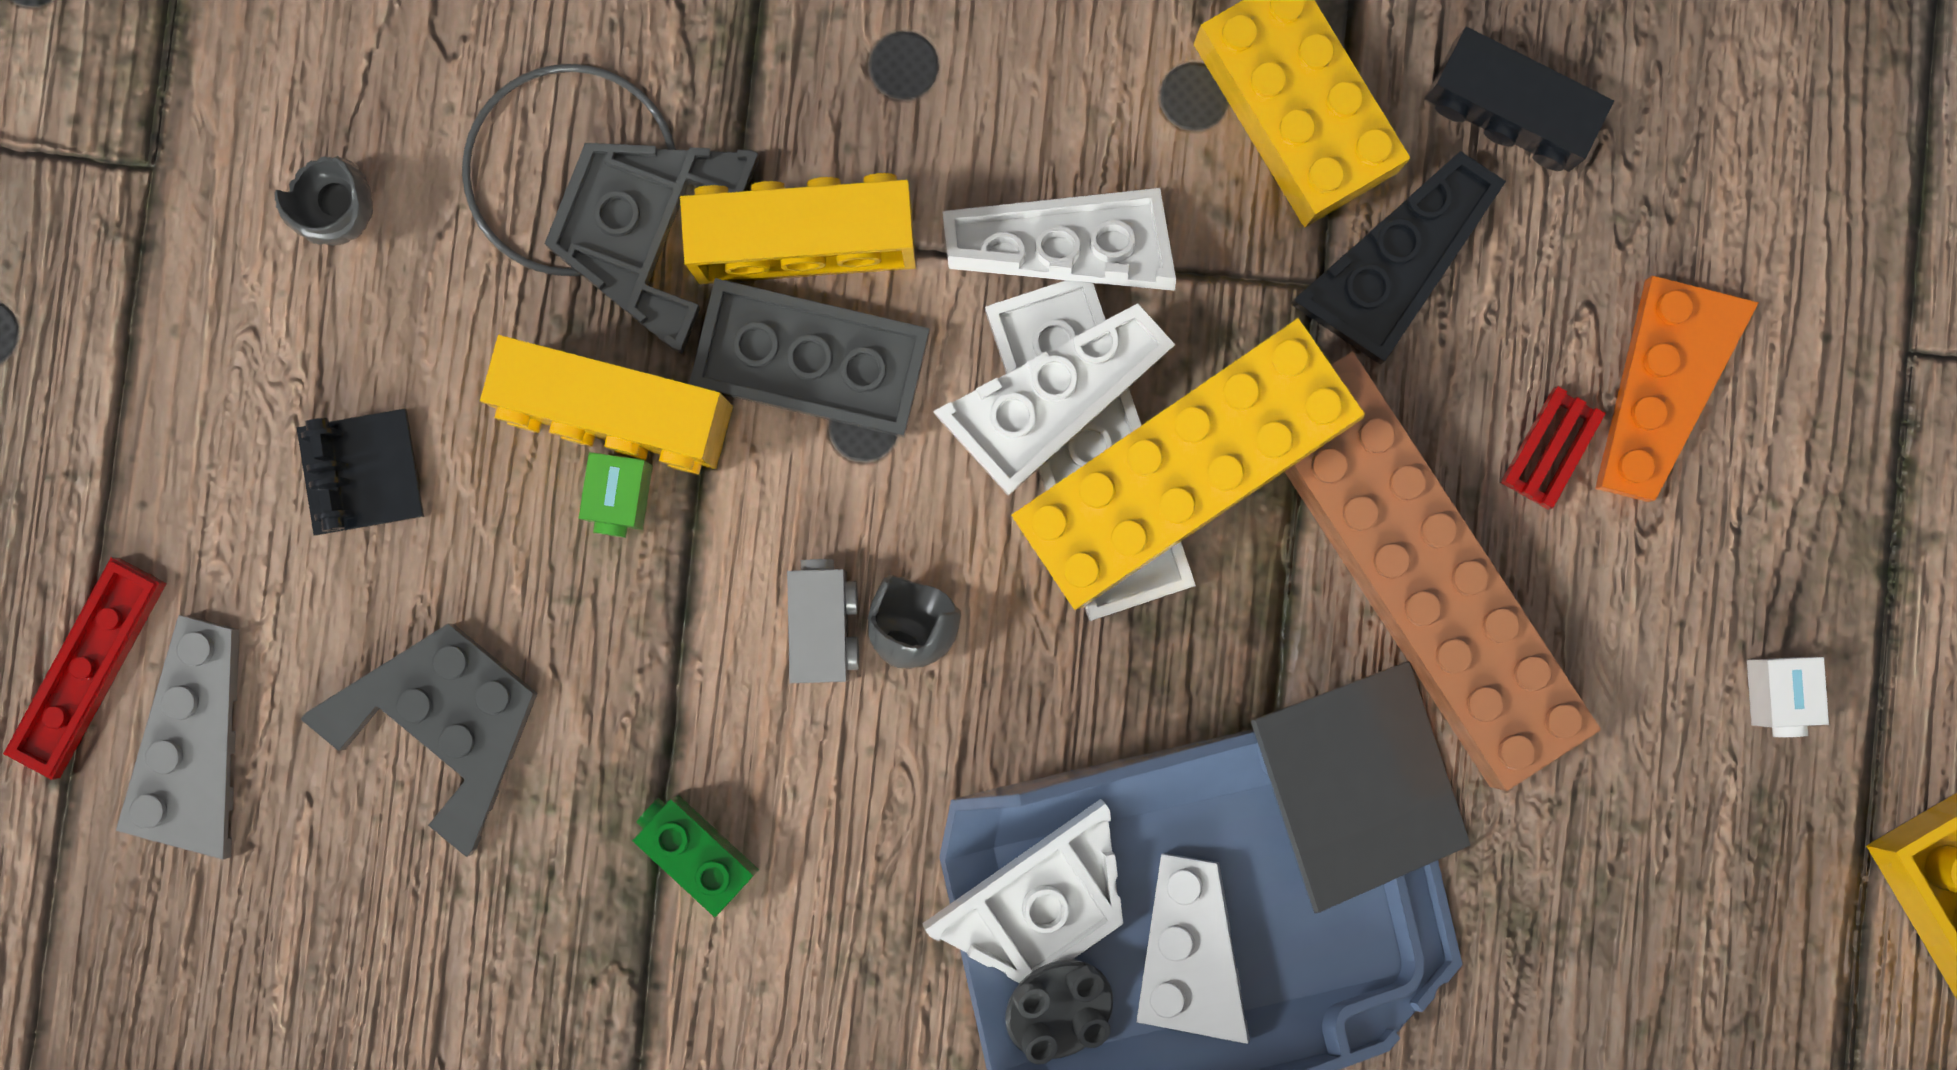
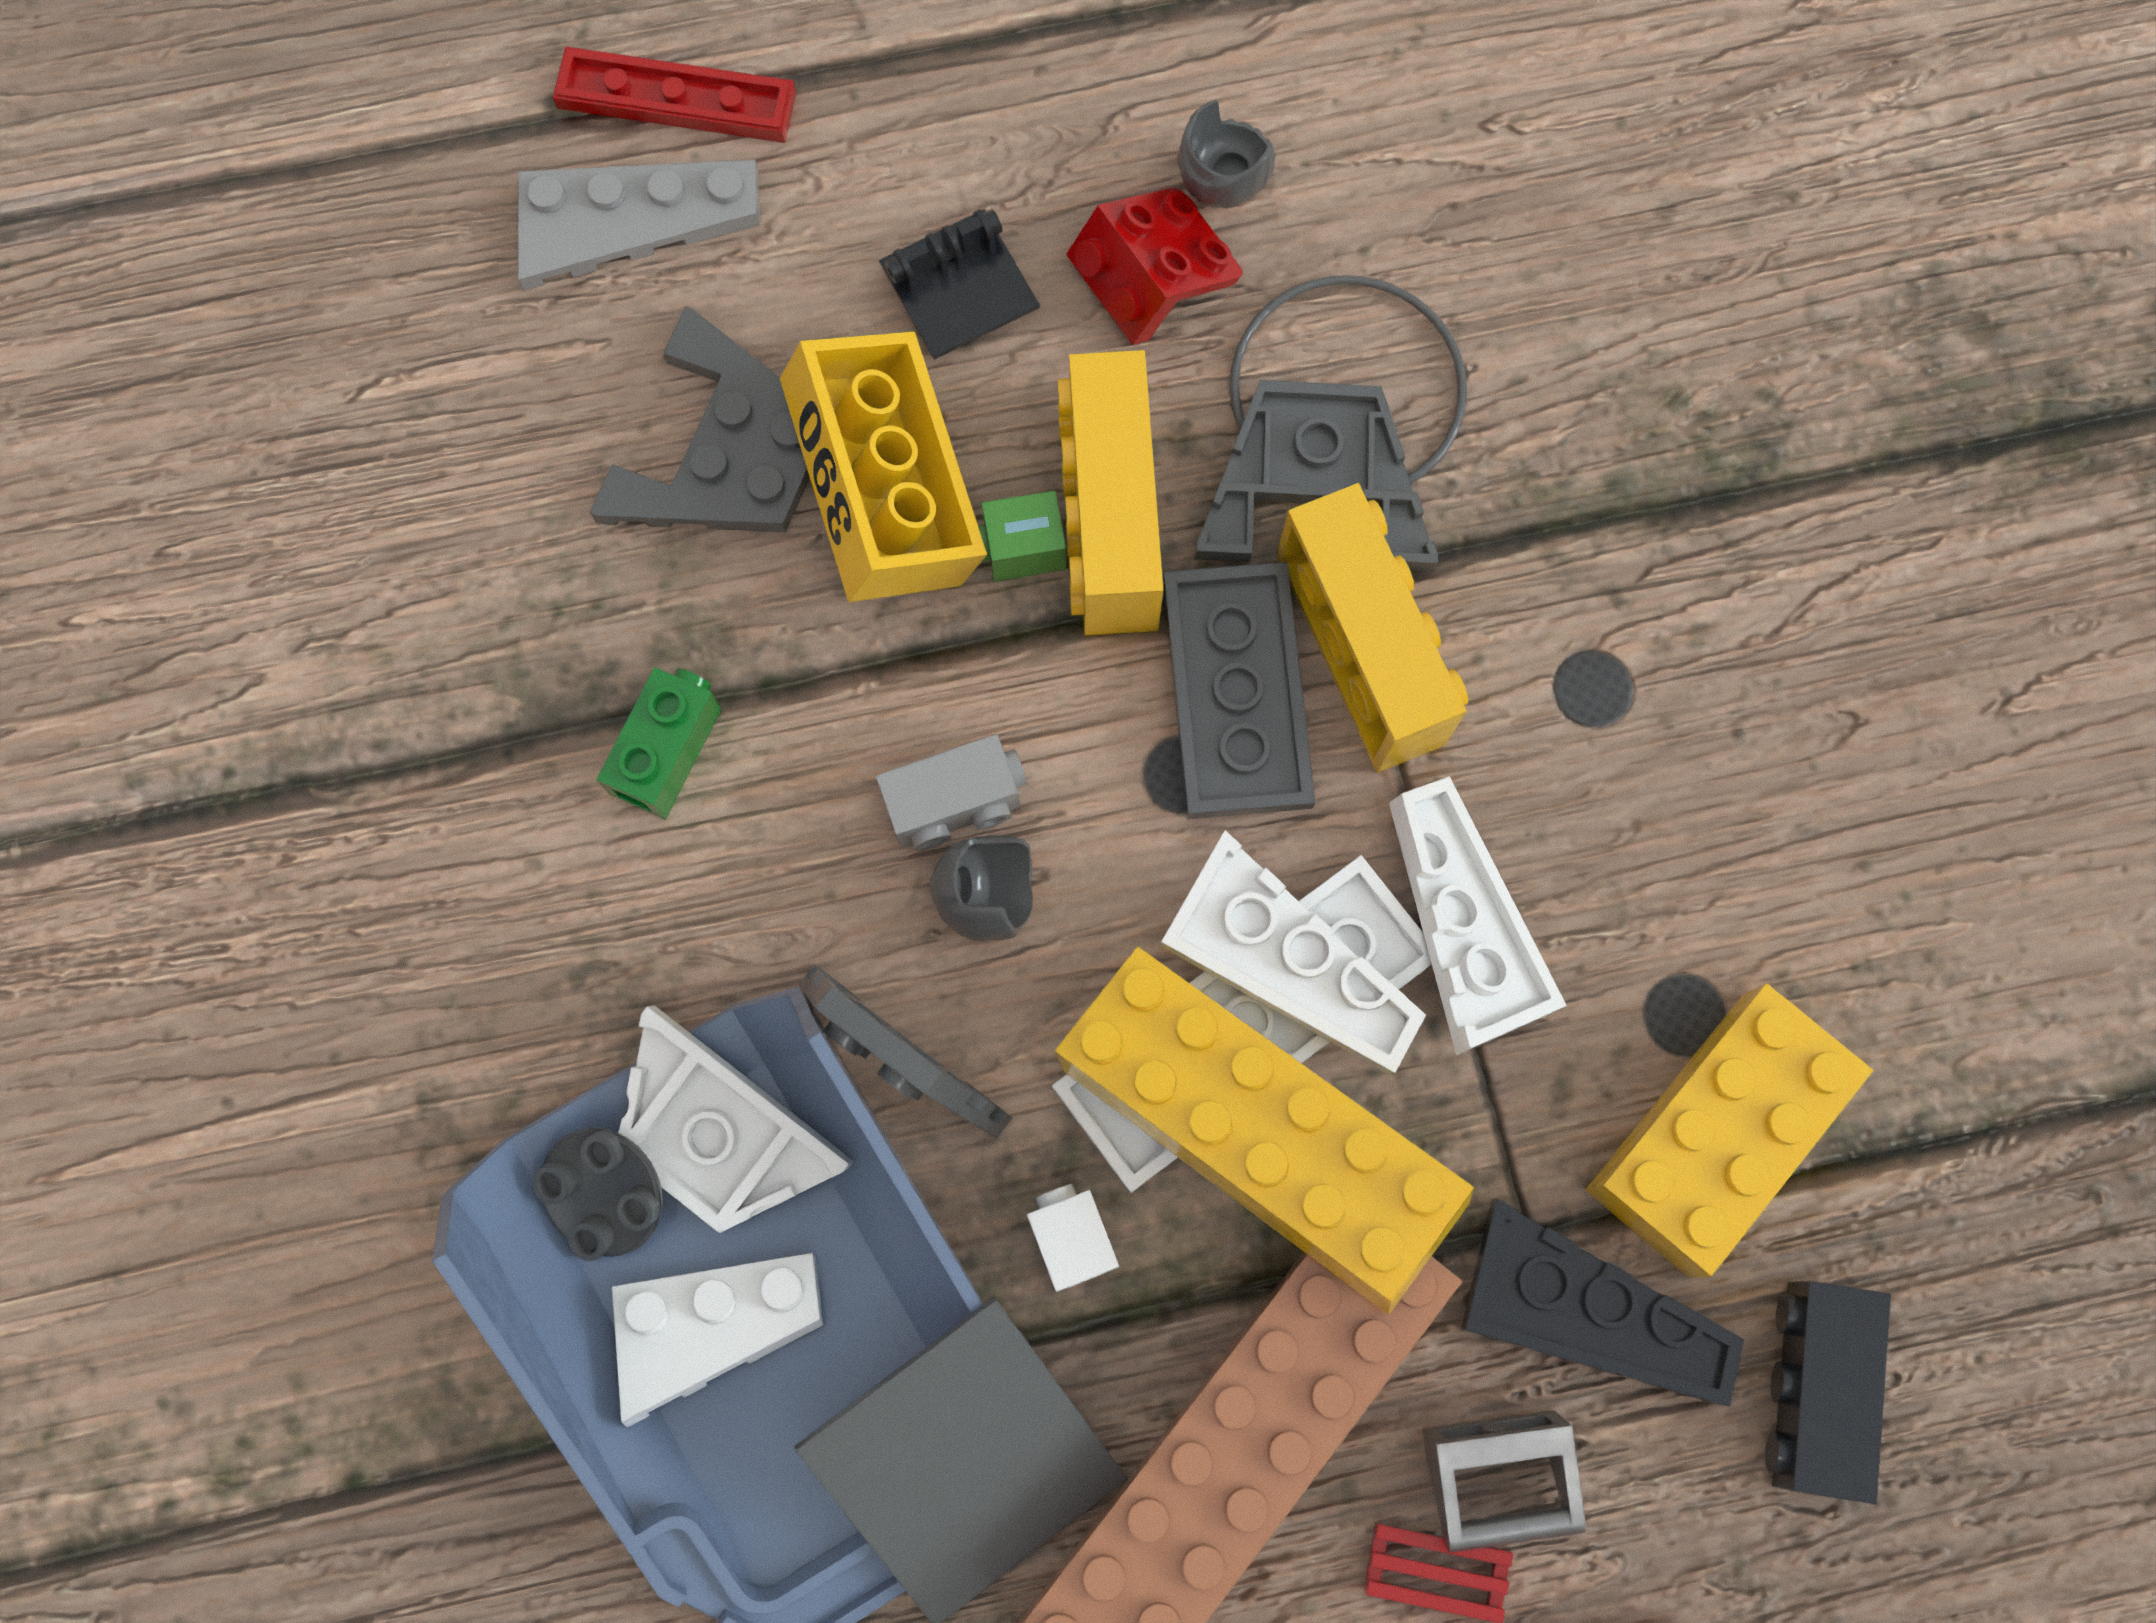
camera: 75 degrees right, 10 degrees down
(396, 297) = (1148, 256): none -> red bracket
(514, 592) = (881, 465): none -> yellow brick
(1048, 731) = (904, 1064): none -> dark grey wing
(1215, 644) = (1071, 1237): none -> white brick
(1476, 367) = (1502, 1442): none -> flat silver tile

